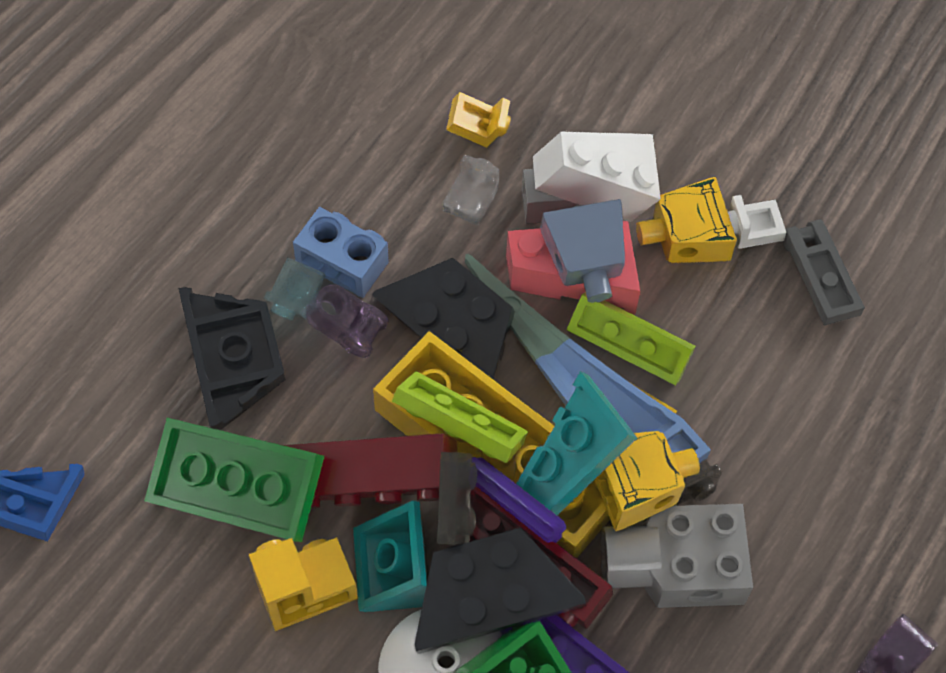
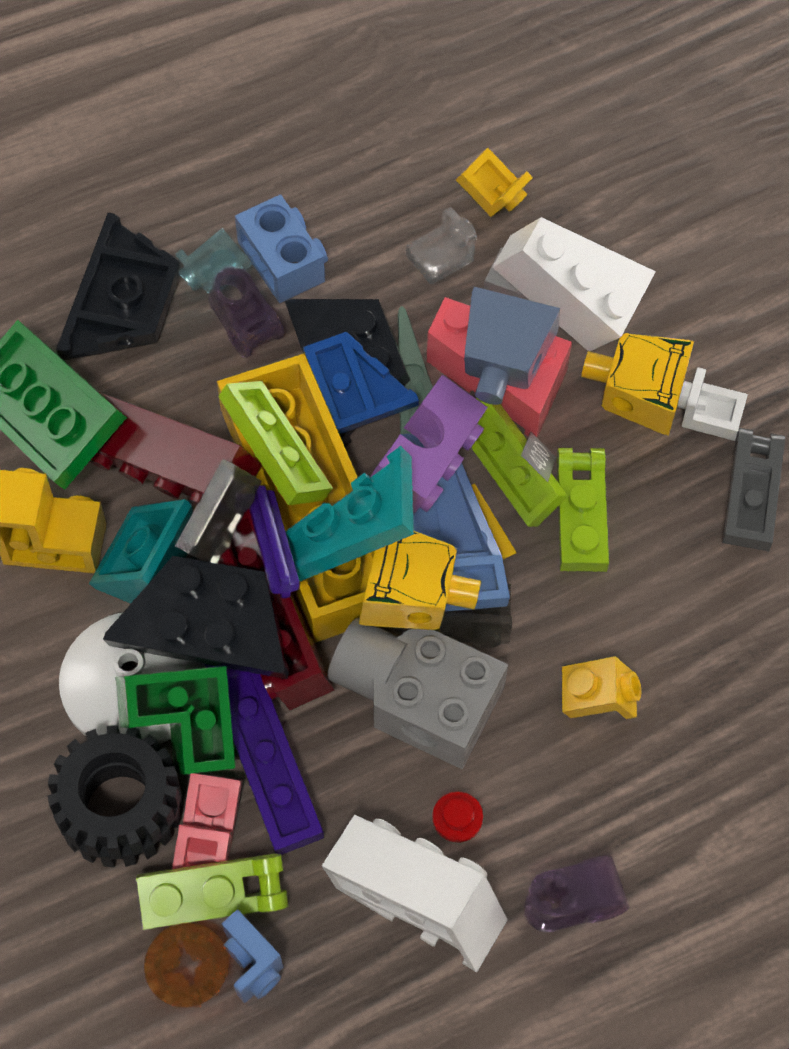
camera: 30 degrees right, 0 degrees up
(482, 334) = (355, 384): none -> blue wing
(576, 336) = (443, 425): none -> medium lavender arch
(656, 325) = (539, 456): none -> light grey sticker
(712, 358) = (584, 511): none -> lime plate
(769, 644) = (457, 817): none -> red plate
(809, 486) = (600, 688): none -> yellow bracket

